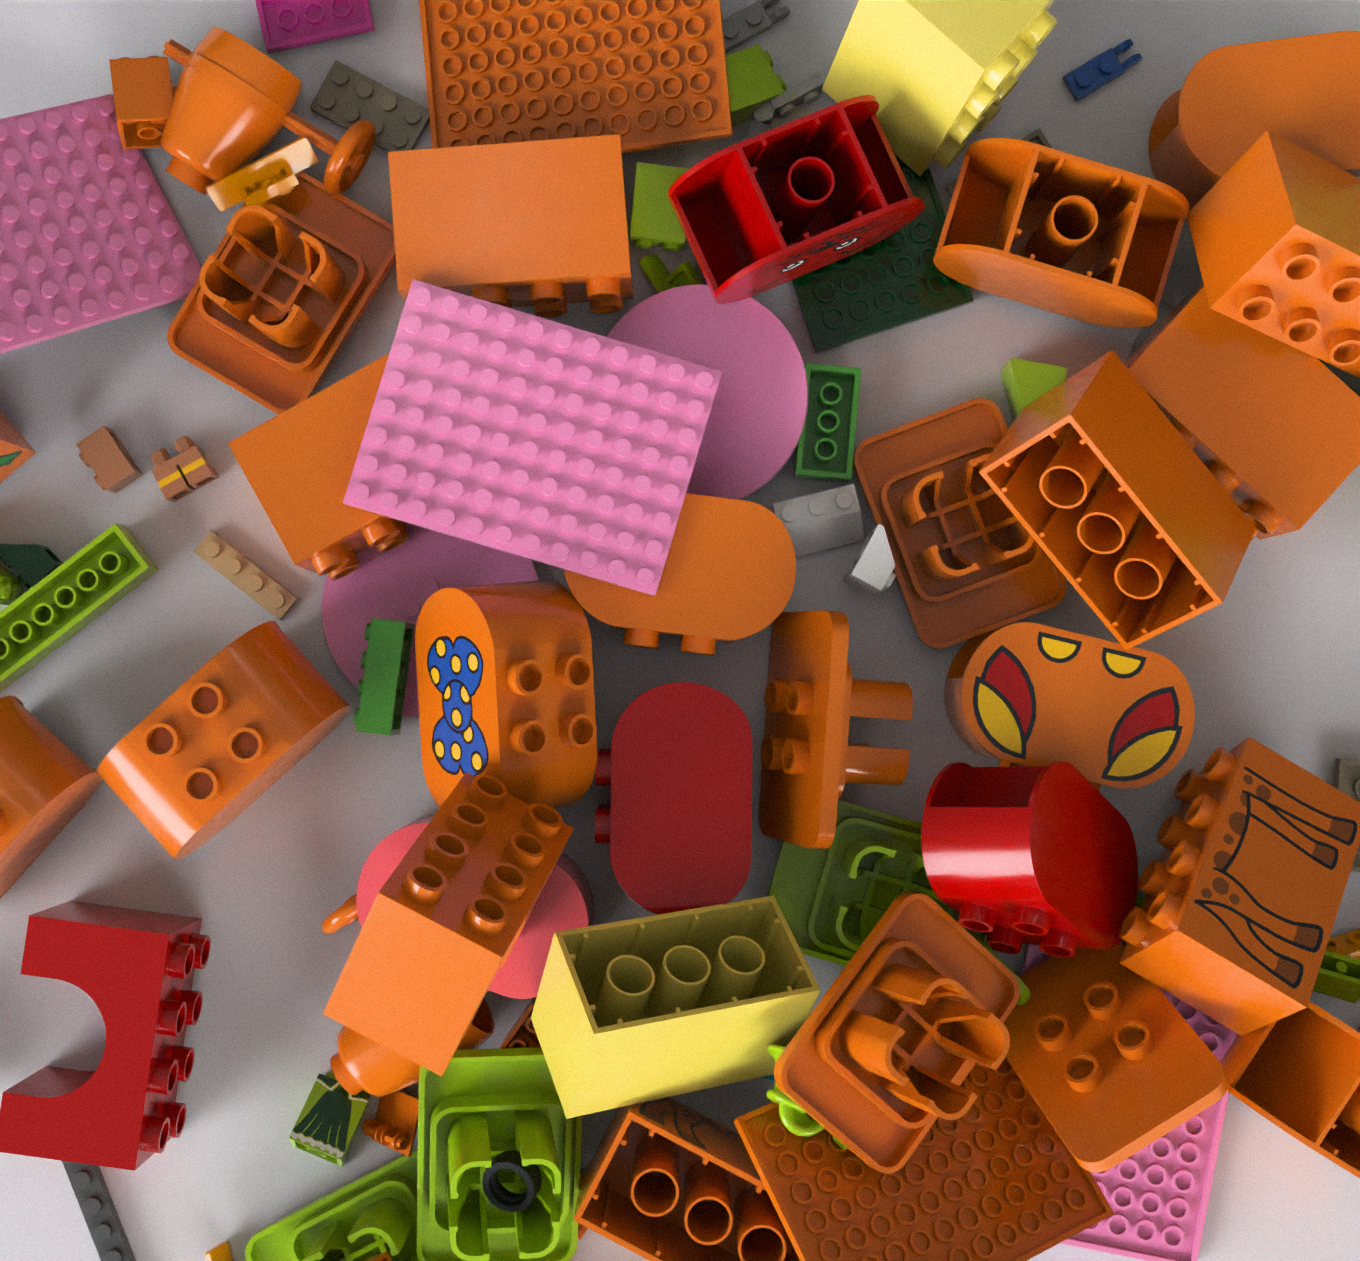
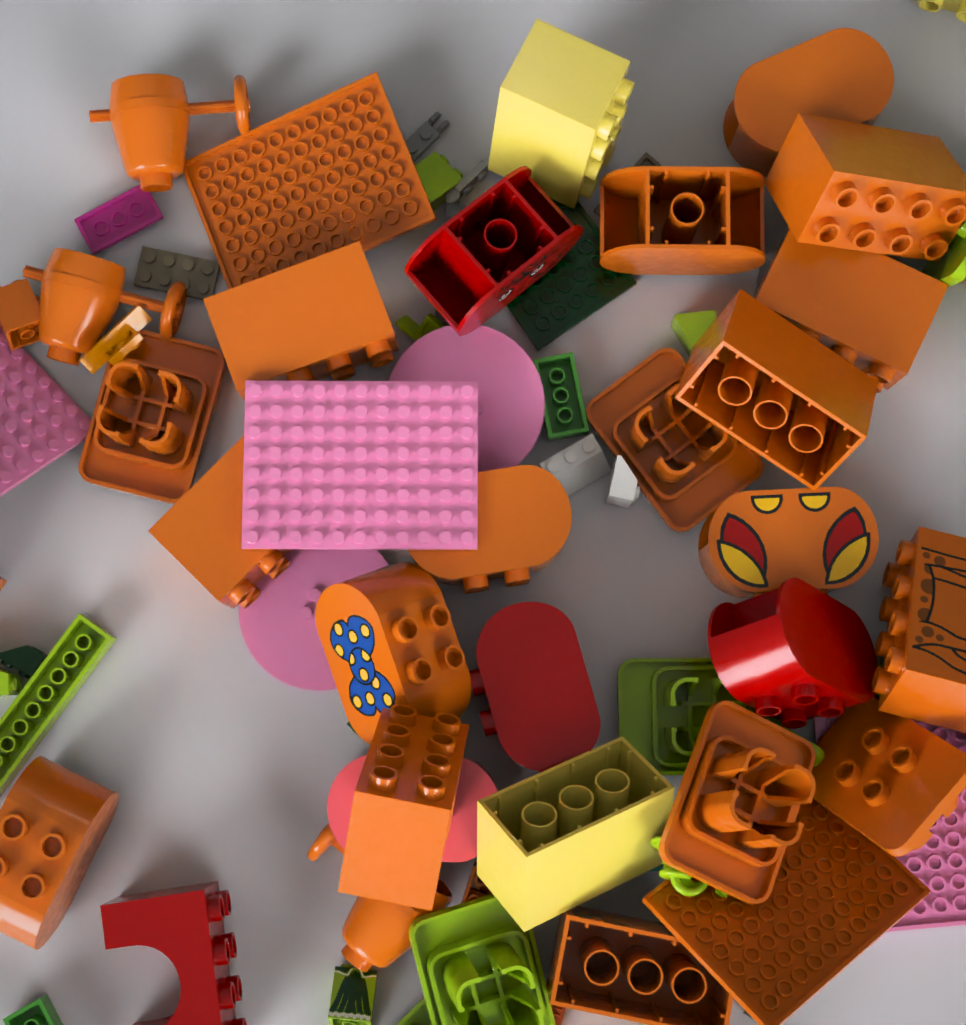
camera: 15 degrees left, 5 degrees down
(108, 459) = (60, 571): nougat brick -> none
(183, 472) = (108, 569): nougat hips -> none
(222, 739) = (201, 742): orange brick -> none
(245, 575) = (180, 624): tan plate -> none
(384, 677) = (301, 665): bright green brick -> none
(394, 1122) = (400, 985): orange hinge -> none
(501, 1196) = (487, 1005): black tyre -> none
(652, 213) = (396, 288): lime slope -> none
(808, 728) = (610, 609): orange piece -> none
(1099, 71) = (676, 101): blue hinge -> none

